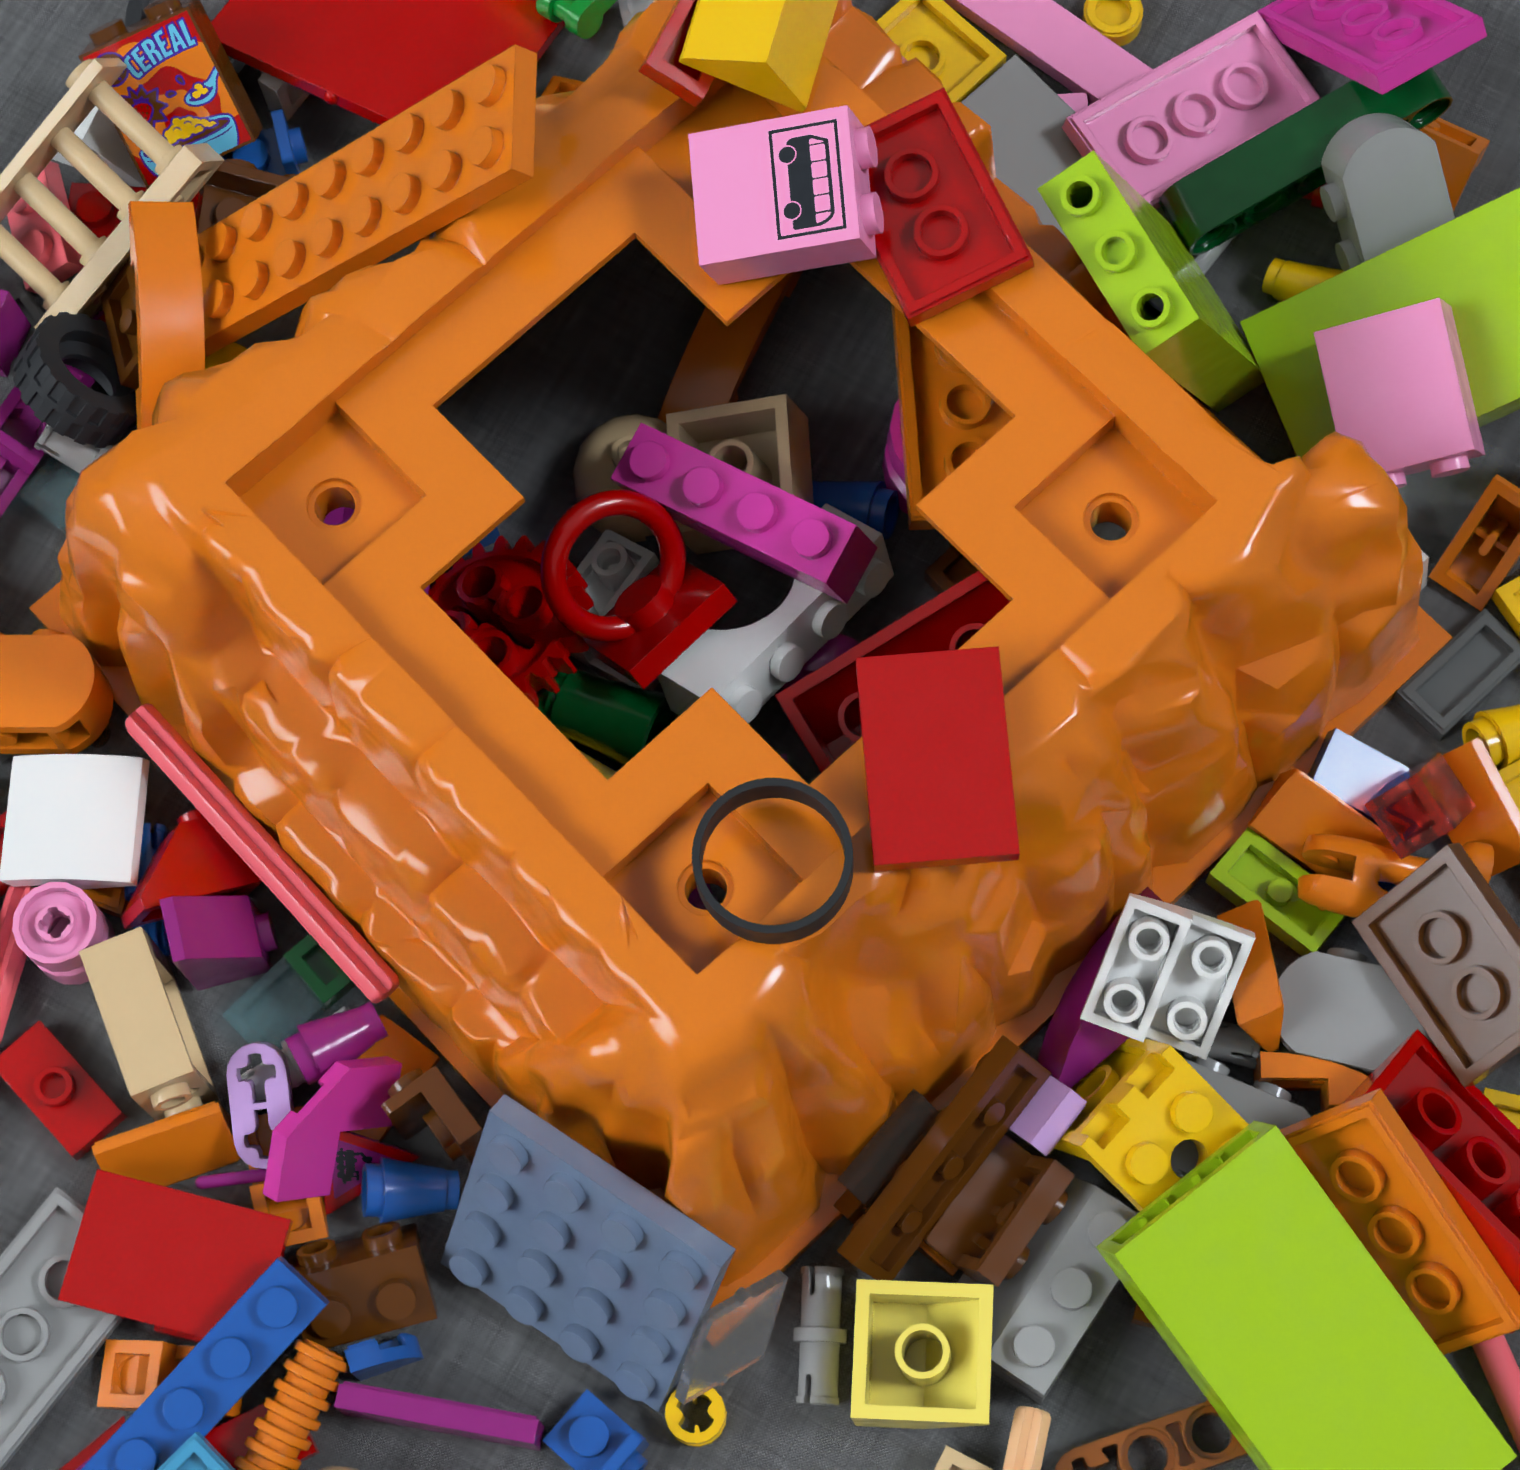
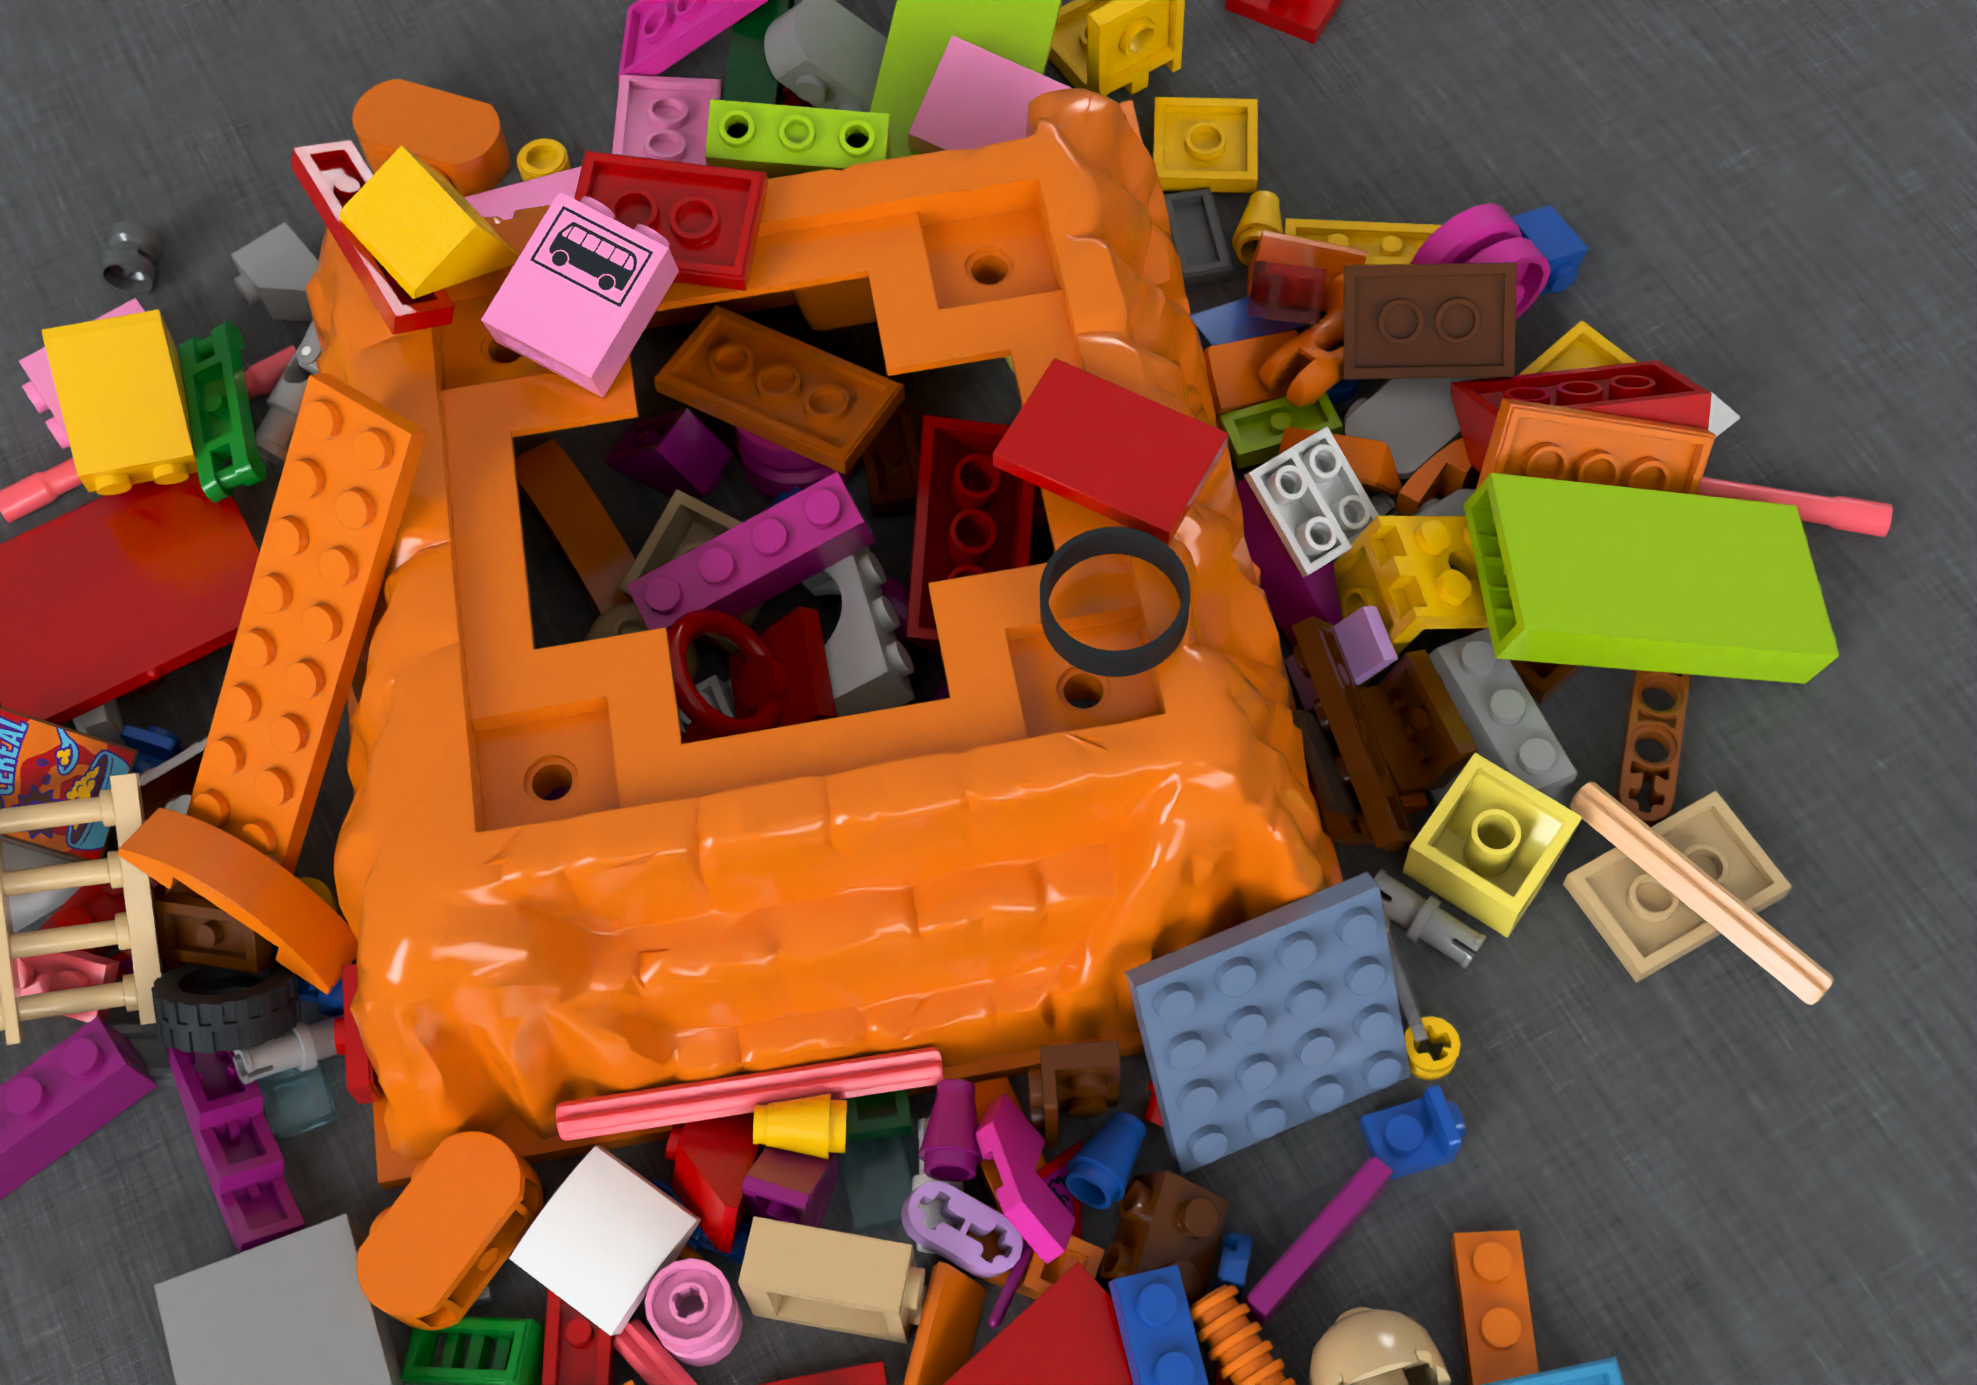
camera: 60 degrees left, 10 degrees down
(257, 915) = (802, 1125): none -> yellow cone
(857, 359) = (671, 454): none -> magenta slope

